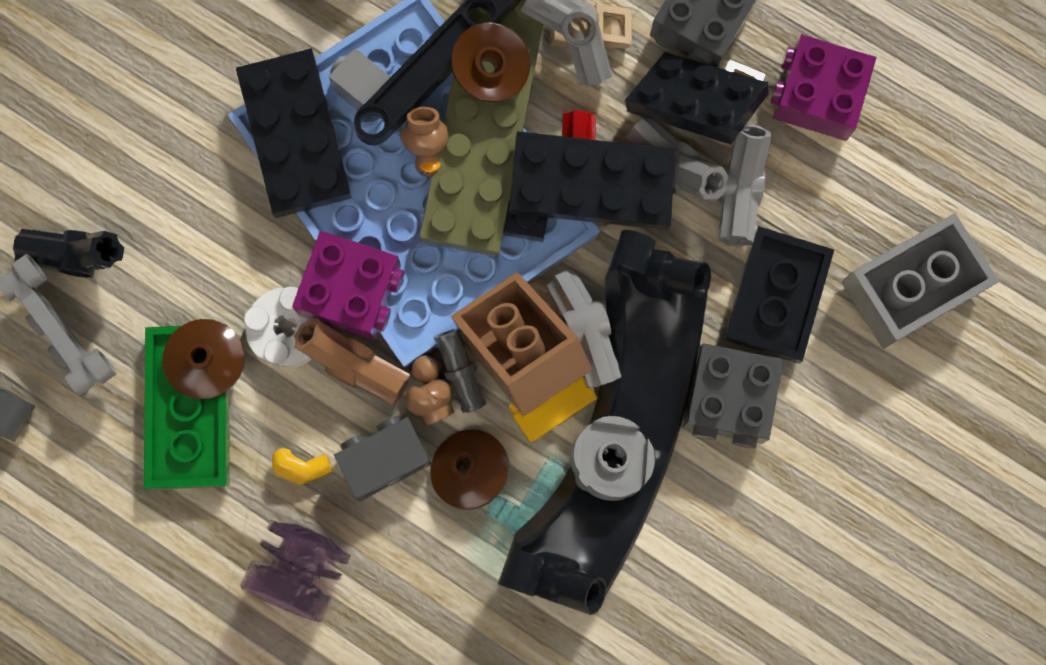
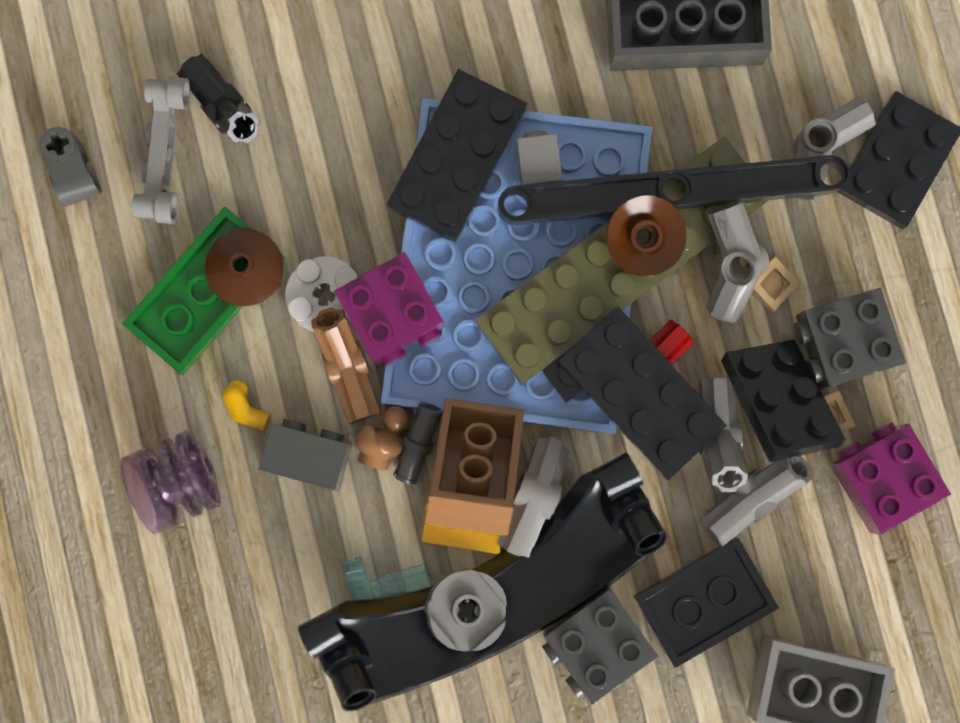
camera: 50 degrees right, 5 degrees up
(425, 137) = (547, 248): medium nougat animal -> none
(481, 481) = (367, 536): reddish brown dish -> none

